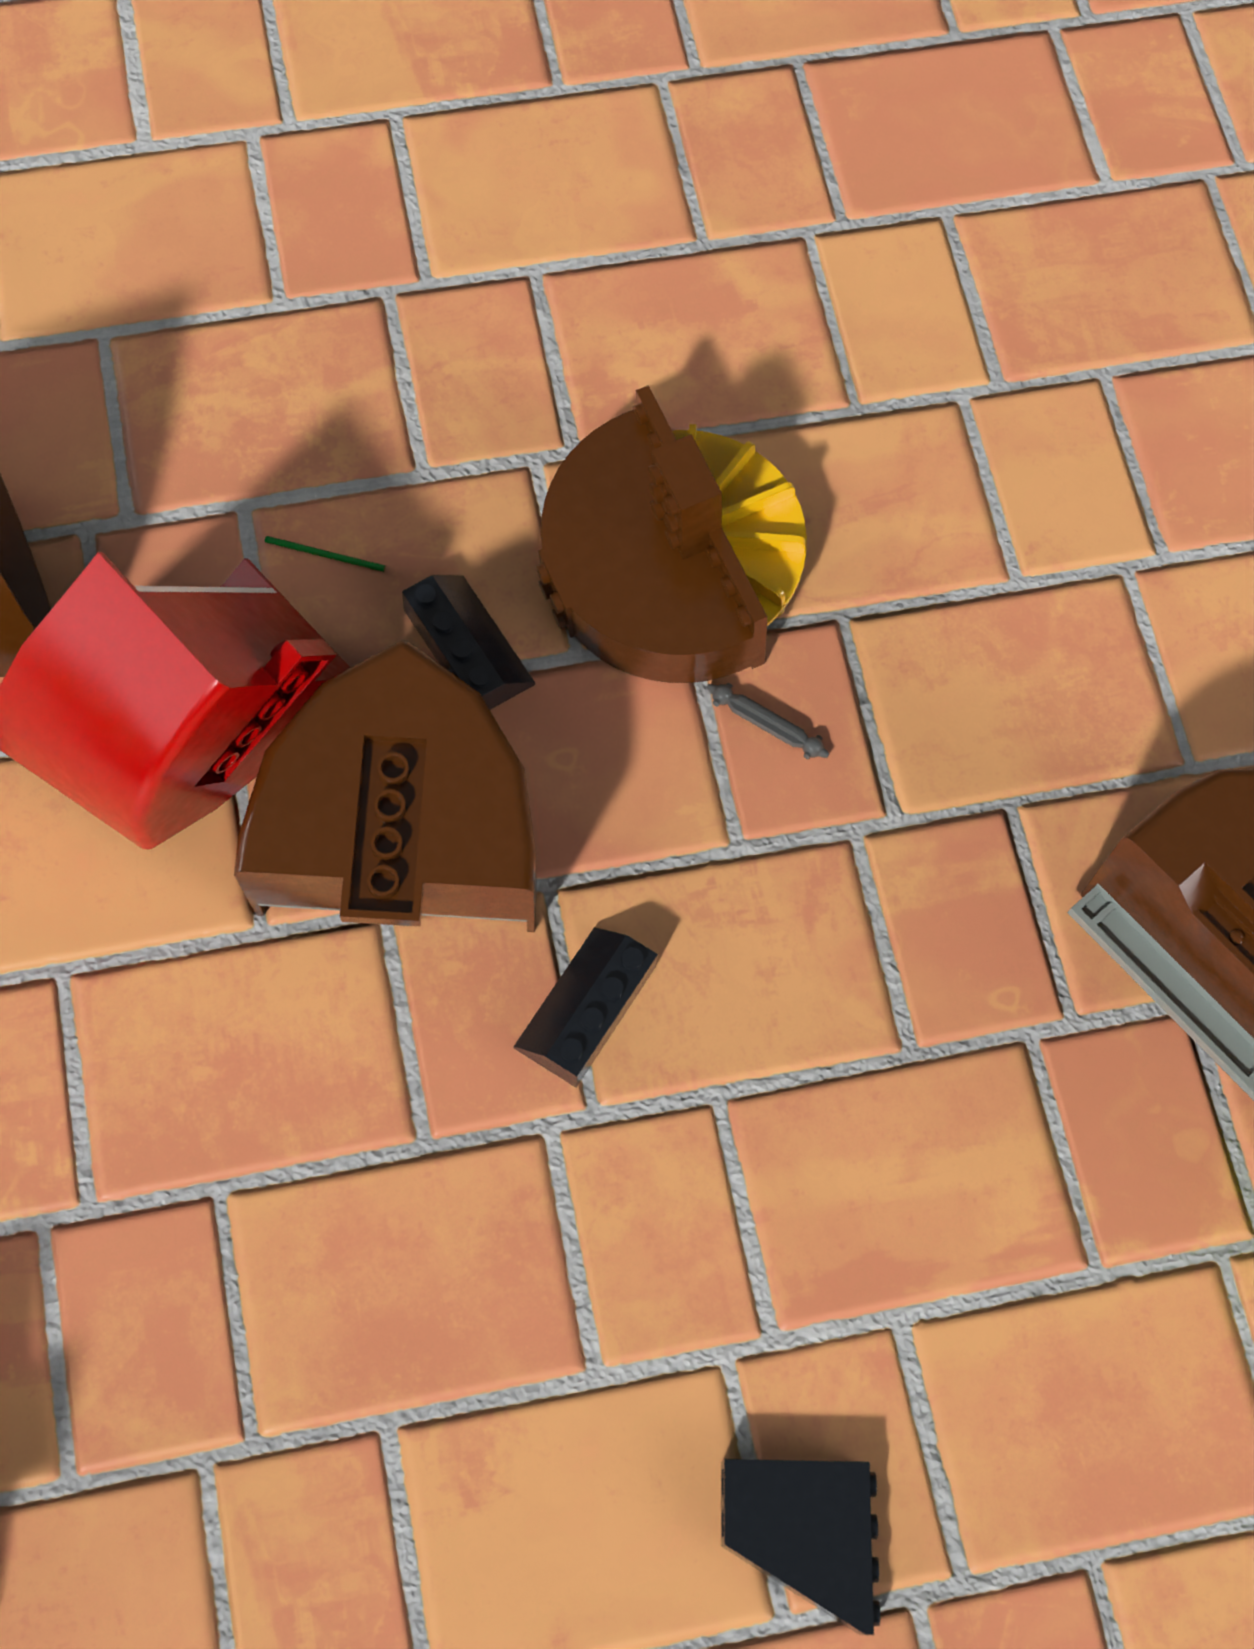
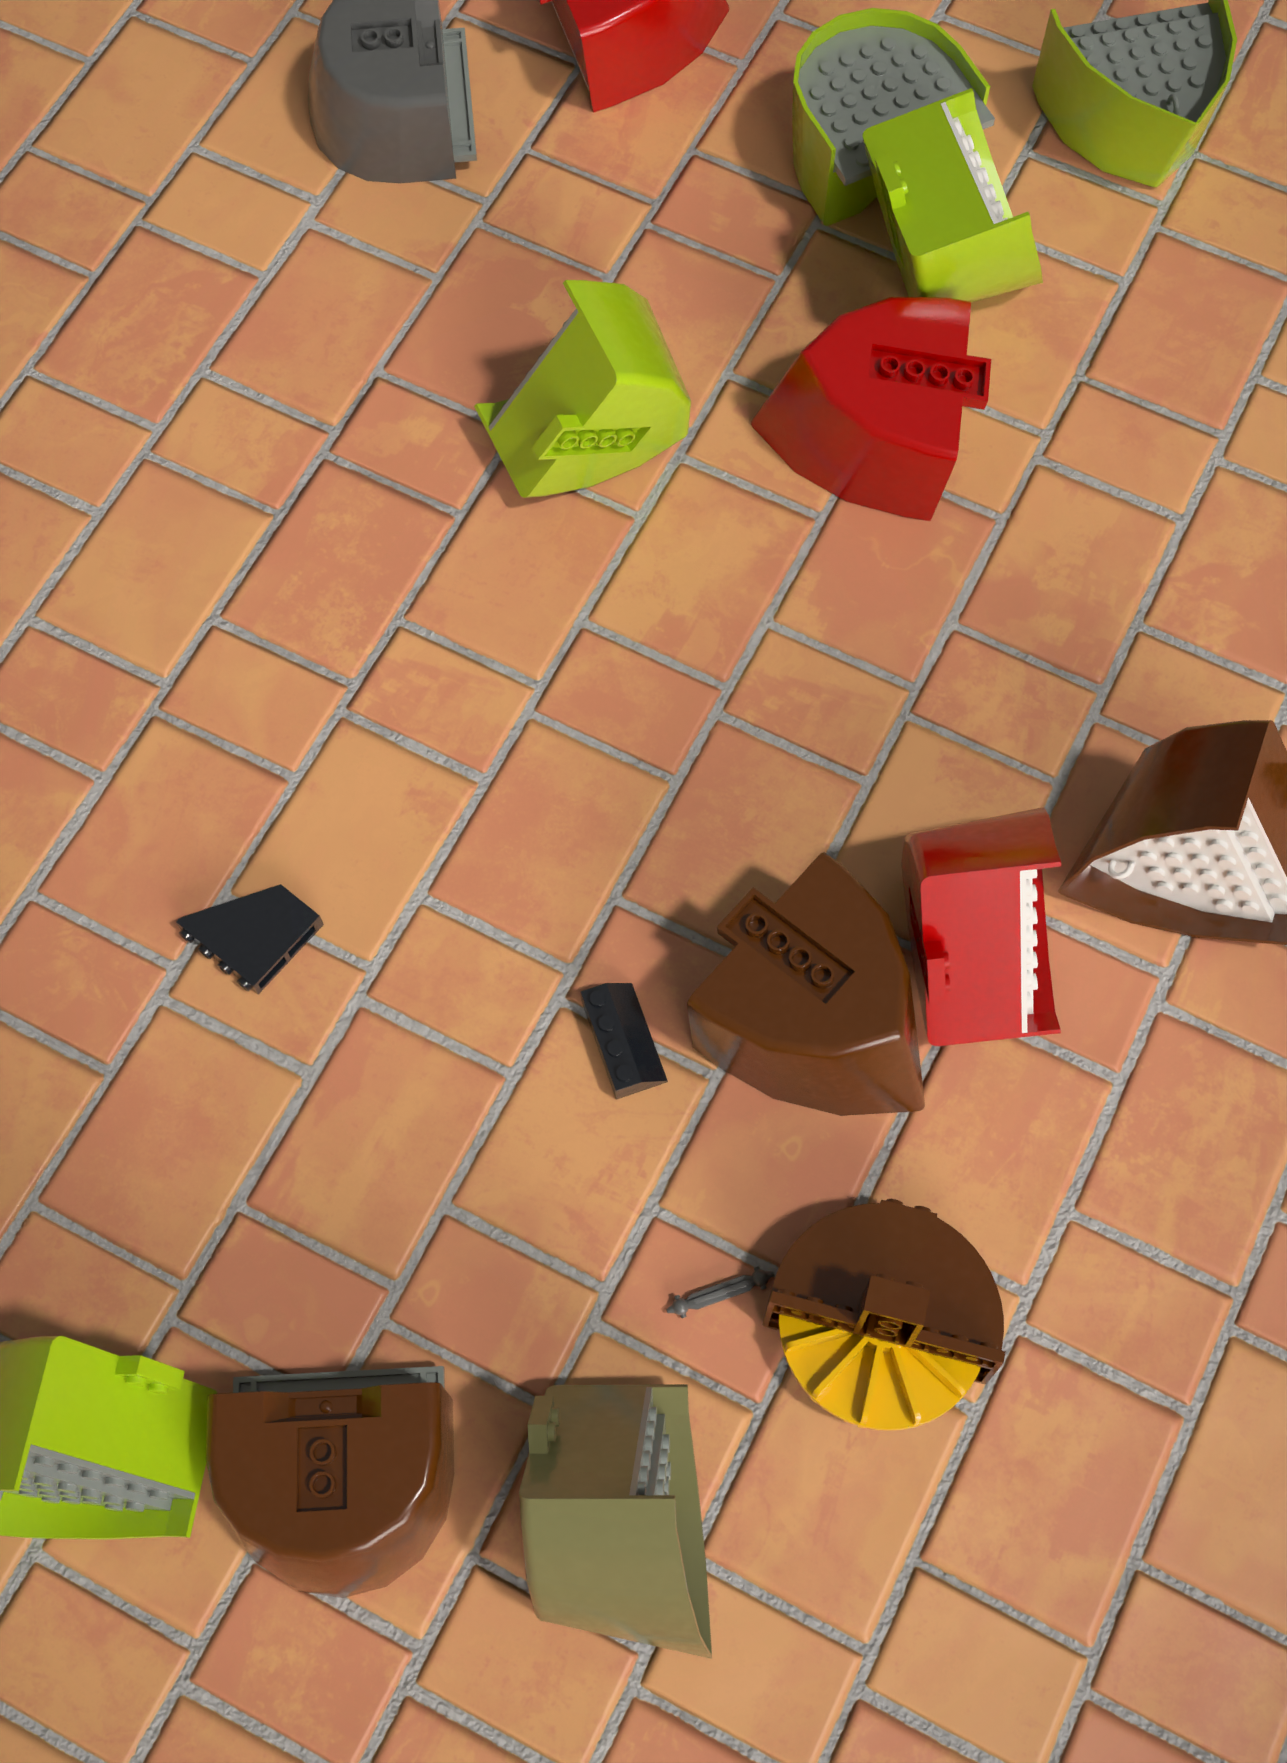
camera: 135 degrees right, 0 degrees up
(323, 553) = (1046, 1105): green axle -> none
(465, 637) = (915, 1143): black slope -> none
(1065, 634) = (616, 1515): none -> olive piece

